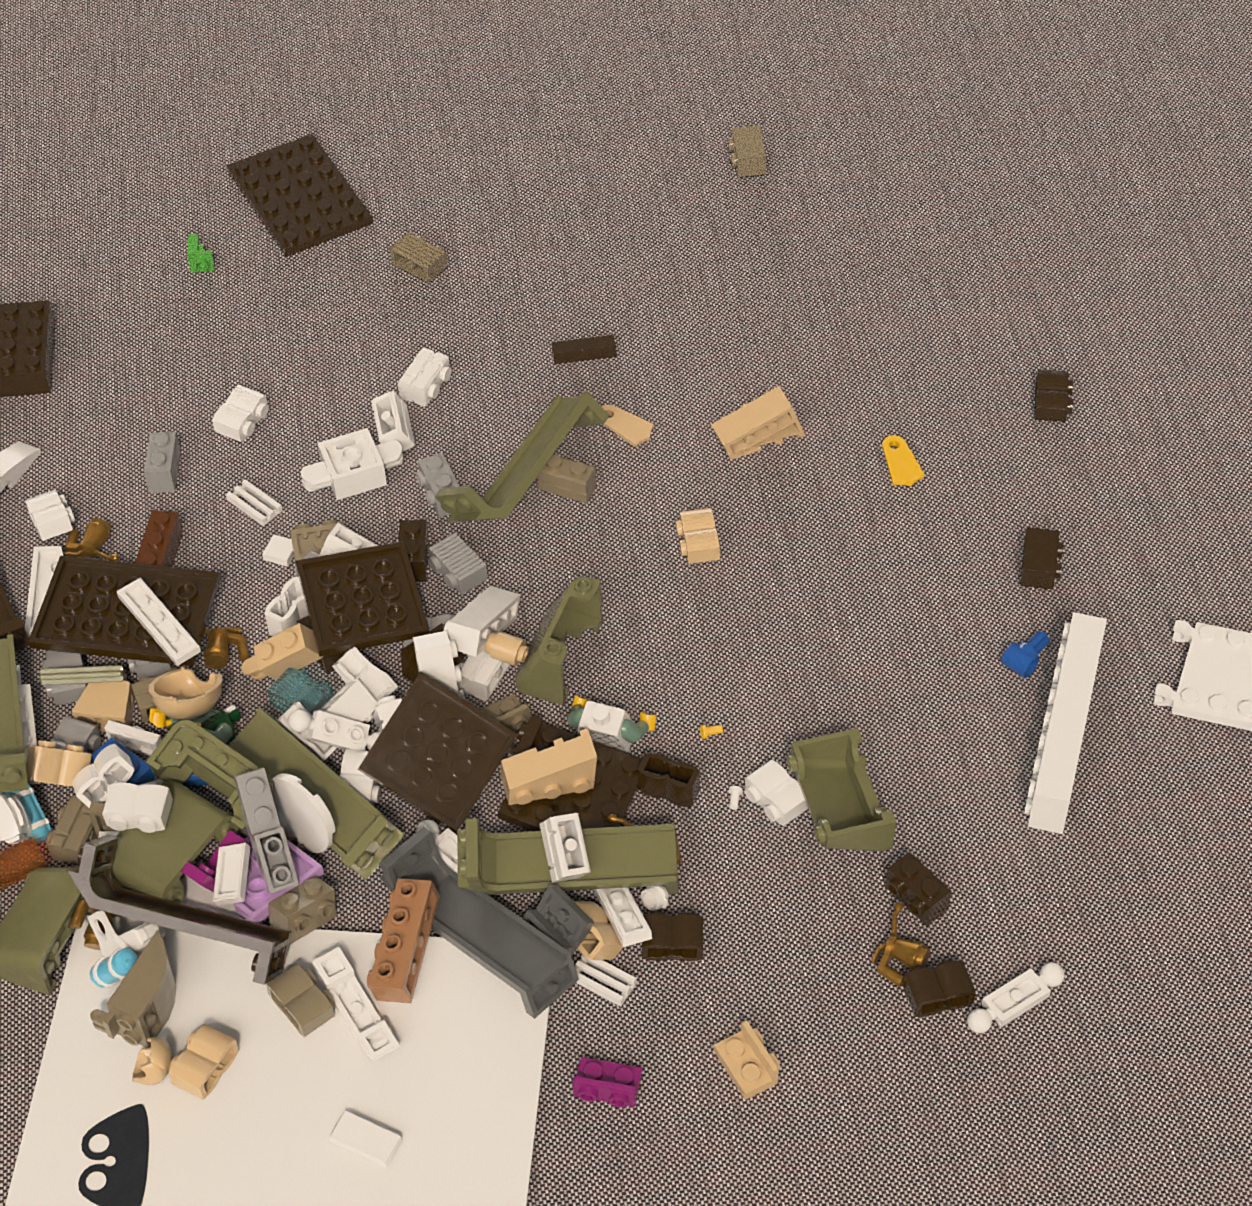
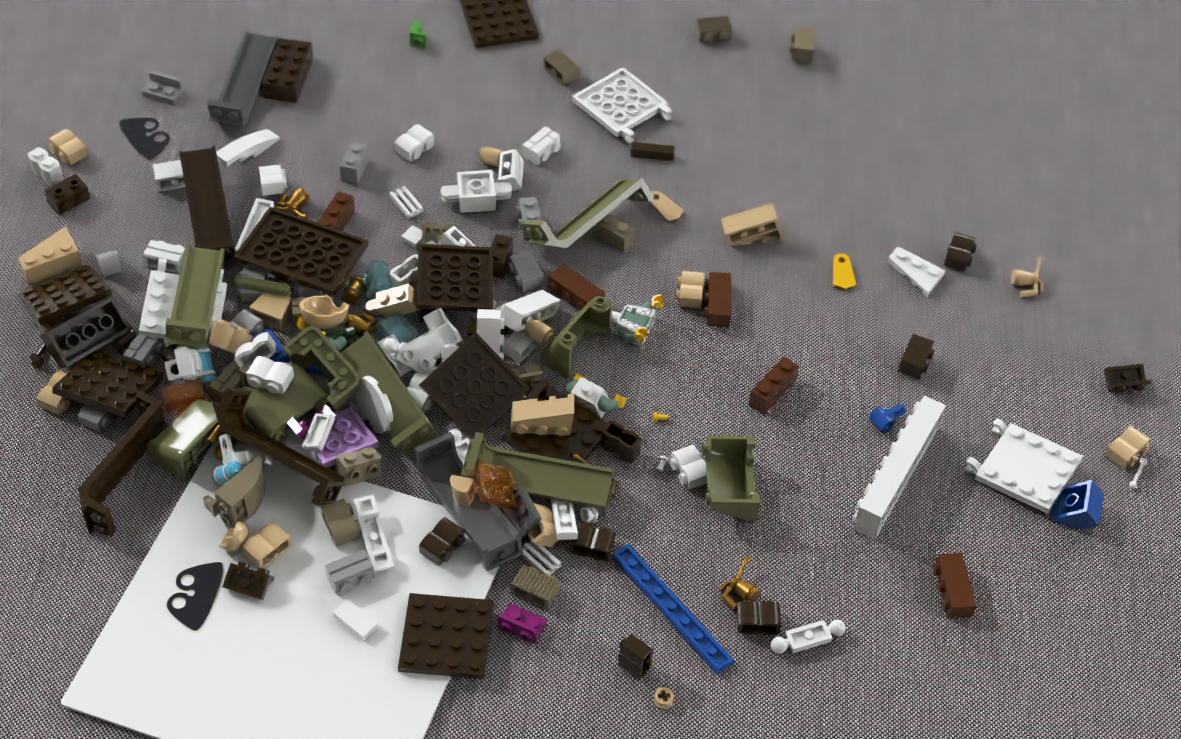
camera: 10 degrees right, 0 degrees up
(133, 738) = (281, 332): white plate -> none
(158, 621) = (319, 262): white tile -> none
(190, 1122) = (247, 581): none -> dark brown bracket
(243, 699) = (361, 325): none -> pearl gold piece
(247, 626) = (376, 278): none -> clear light blue brick
(265, 830) = (346, 409): light grey slope -> none
(337, 1070) = (350, 571): none -> light grey brick
(356, 408) = (490, 156): none -> tan brick
(403, 941) = (416, 501): medium nougat brick -> none
(458, 990) = (442, 541): none -> dark brown brick
(466, 907) = (463, 490): none -> tan brick
(505, 1130) = (446, 636): none -> dark brown plate
(513, 889) = (495, 485): none -> clear orange slope
(519, 290) = (621, 103): none -> white plate
(533, 571) = (573, 286): none -> reddish brown brick
(565, 847) = (536, 466): white brick -> none
(611, 1023) = (535, 587): none -> dark tan brick
(616, 156) = (713, 28): none -> dark tan brick
(637, 599) = (636, 321): none -> torso
(741, 541) = (718, 299): none -> reddish brown brick
(748, 1061) = (614, 629): tan bracket -> none
(785, 1090) = (635, 656): none -> dark brown brick
(814, 1006) = (673, 609): none -> blue tile
(844, 1131) = (659, 703): none -> tan bush
(856, 646) = (773, 385): none -> reddish brown brick
(918, 889) = (764, 551): dark brown brick -> none
(1004, 435) = (918, 270): none -> white wing
(1149, 413) = (1025, 278): none -> tan piece
(1193, 872) = (954, 585): none -> reddish brown brick

